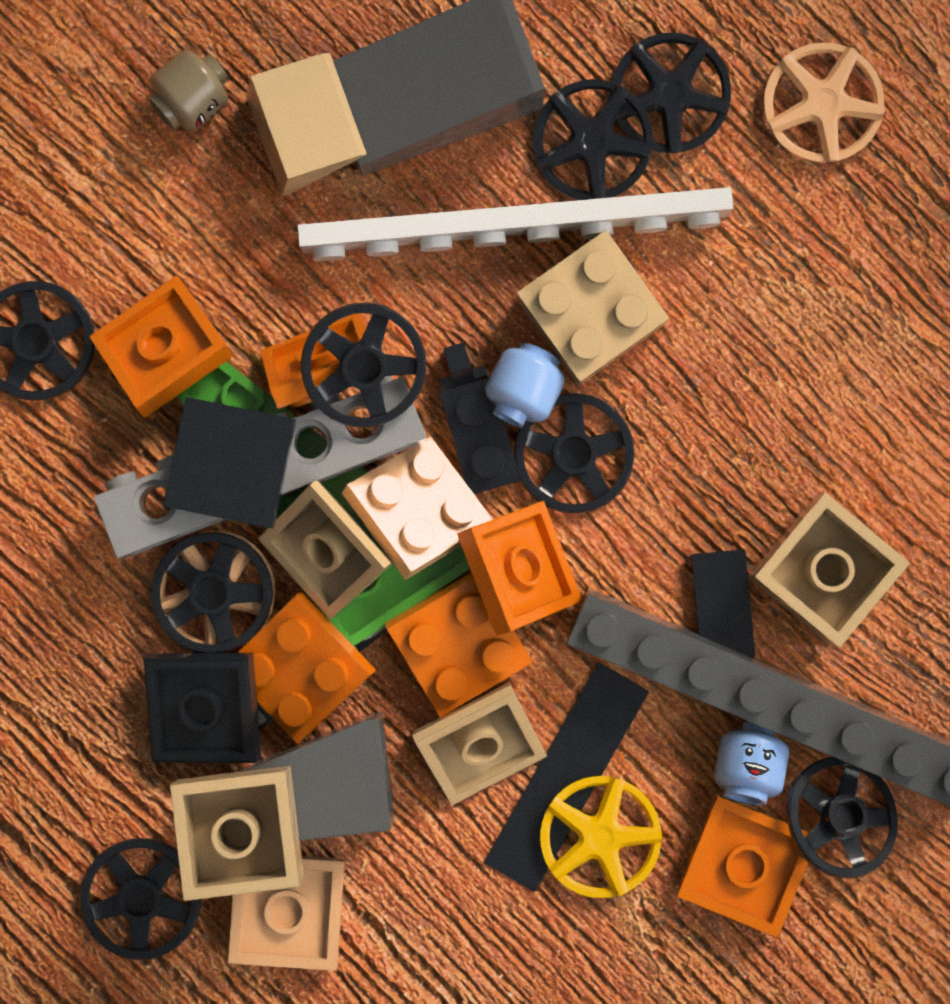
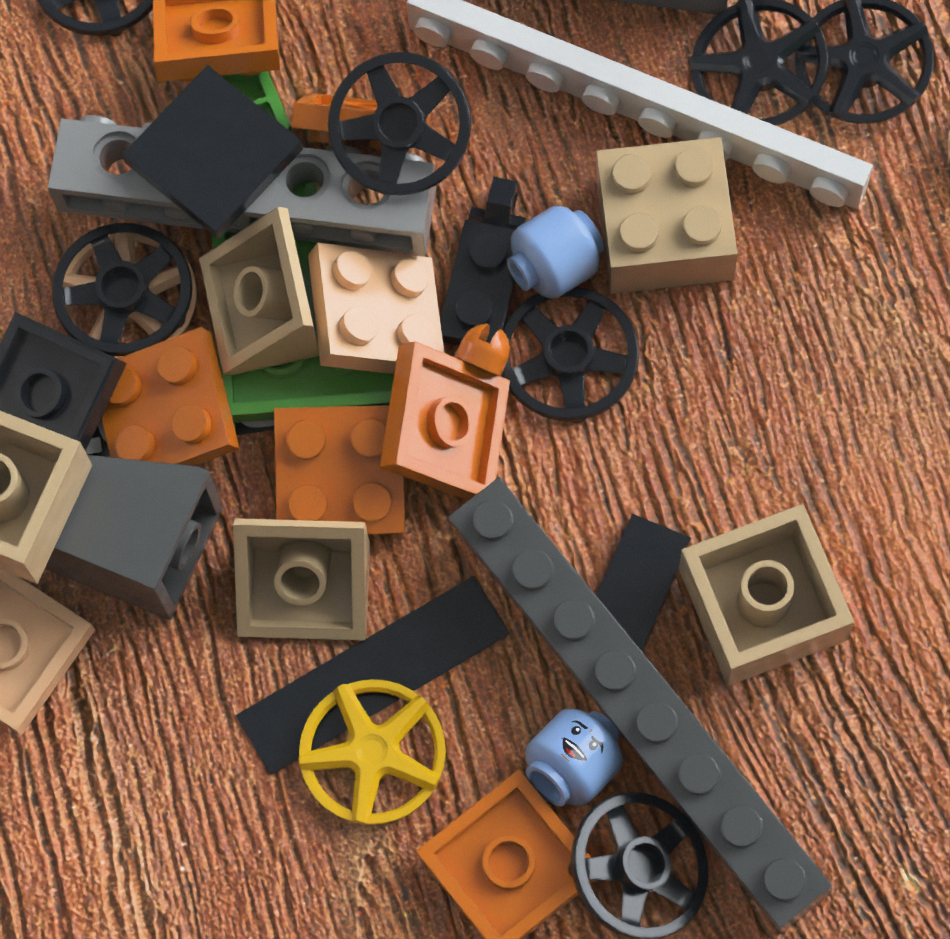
camera: 30 degrees right, 15 degrees down
(516, 495) = (482, 354): none -> orange hinge

